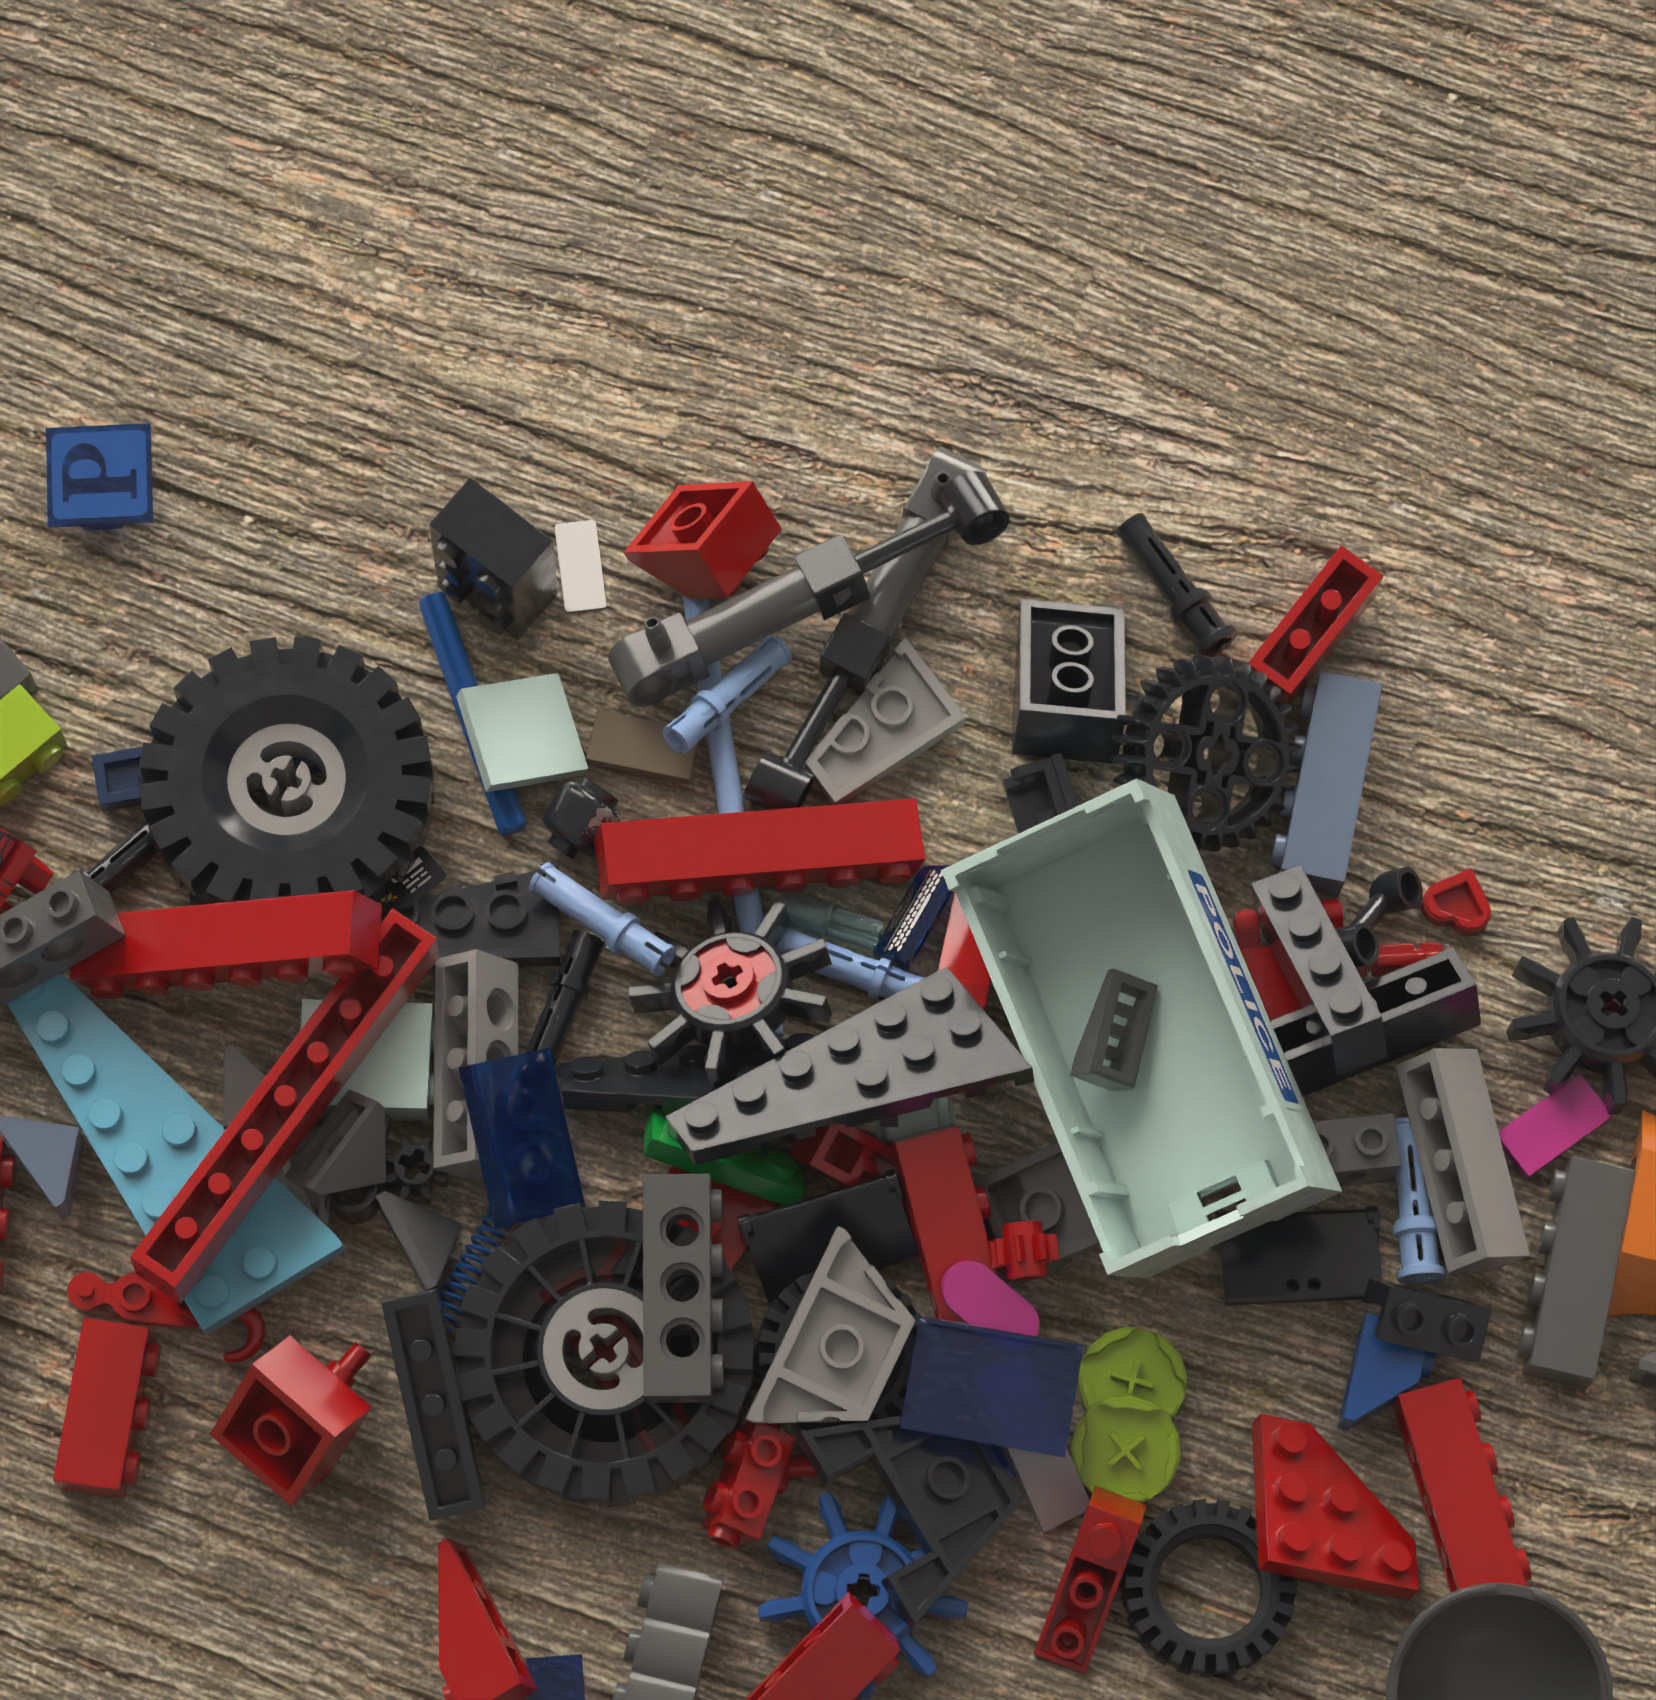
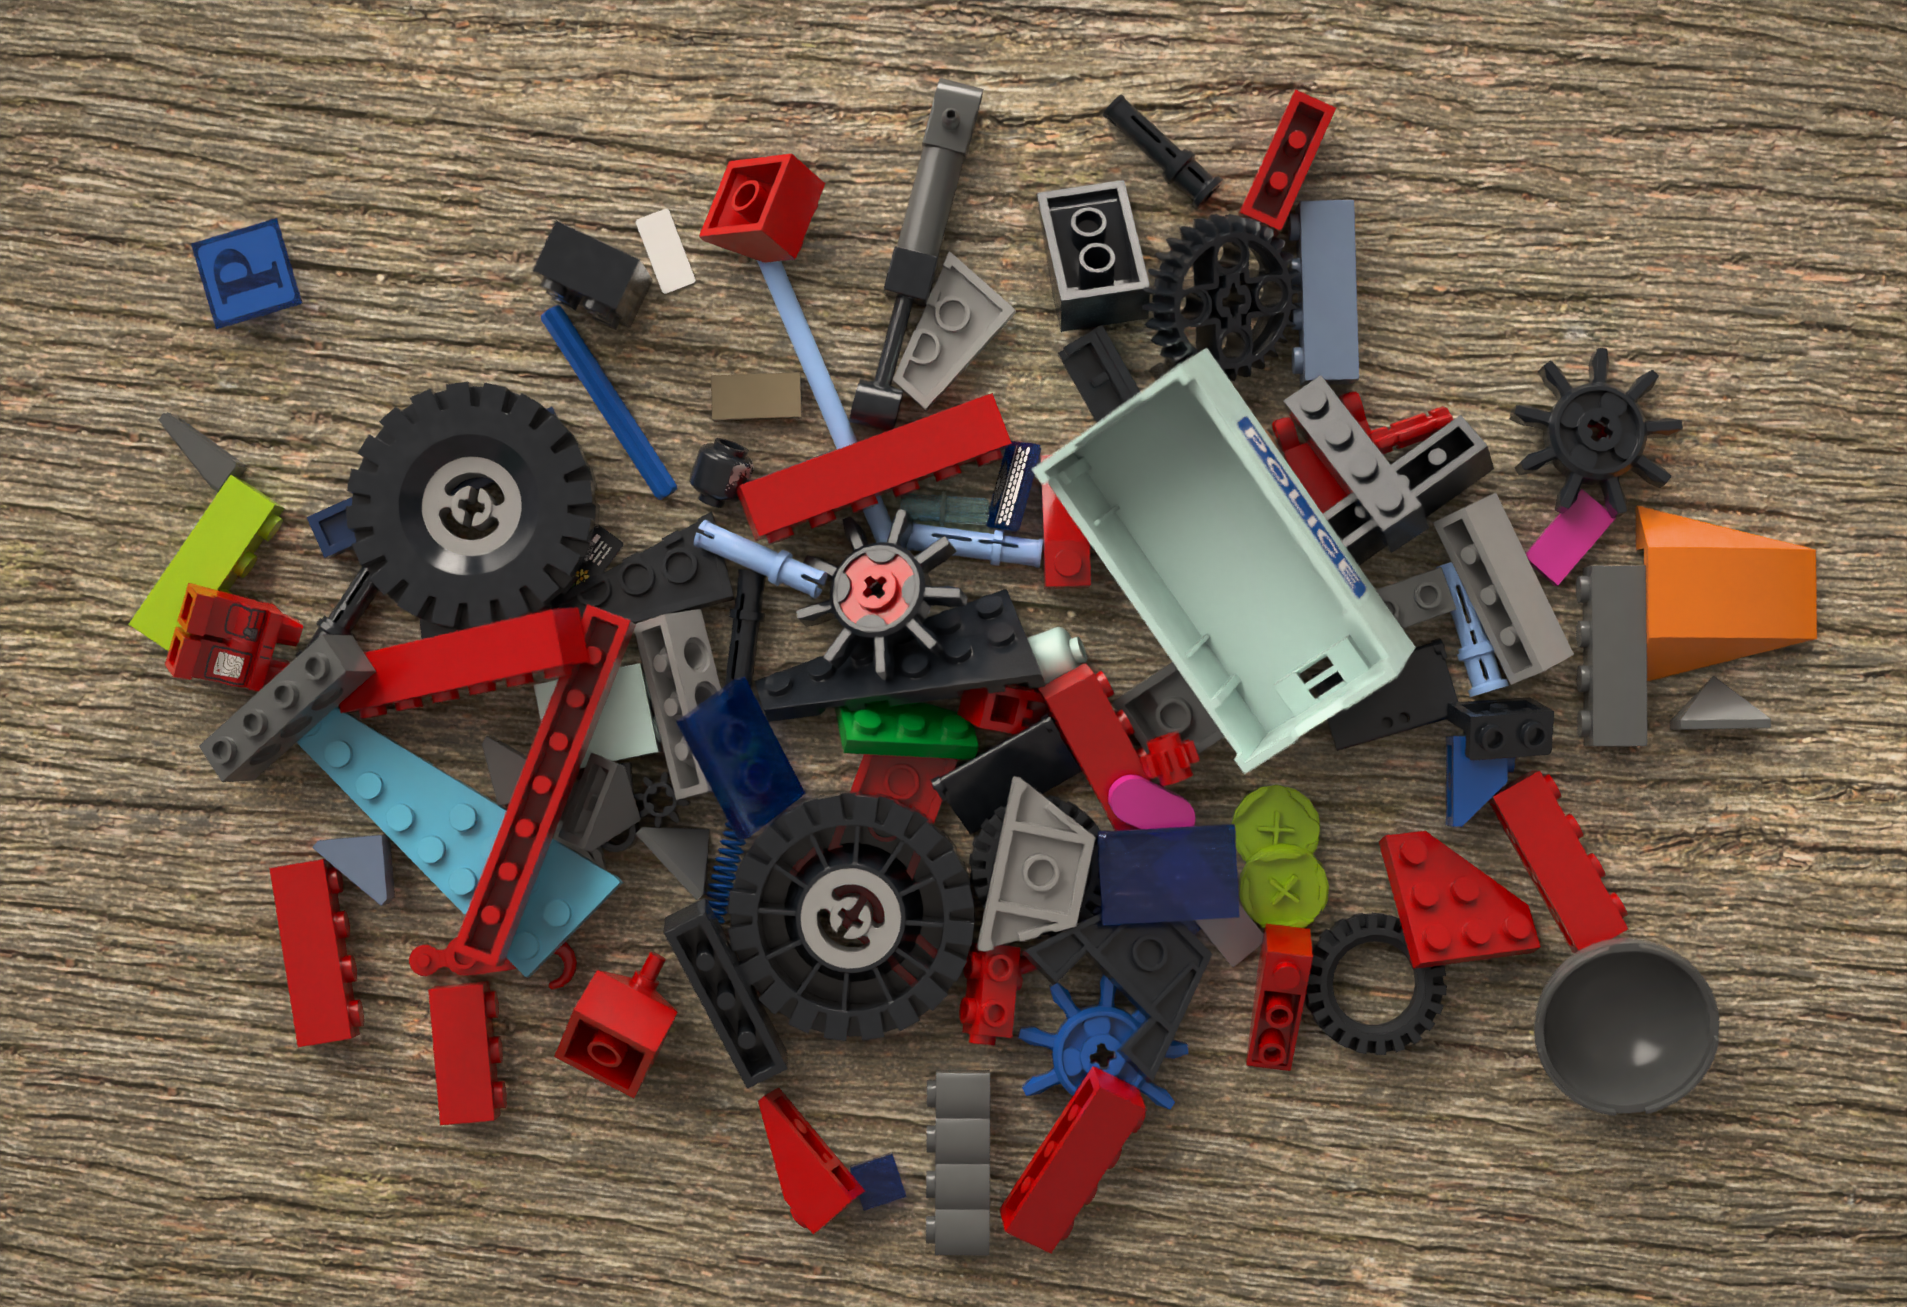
camera: 15 degrees left, 15 degrees up
(522, 732) = (654, 411): light aqua tile -> none
(666, 1202) = (905, 933): dark grey brick -> none
(713, 706) = (807, 352): light blue pin -> none
(826, 580) = (871, 226): piece -> none
(864, 1070) = (1010, 642): wing -> none
(1094, 1042) = (1216, 567): dark grey slope -> none
(1389, 894) = (1396, 372): black bar -> none
(1457, 903) = (1452, 367): red tile -> none

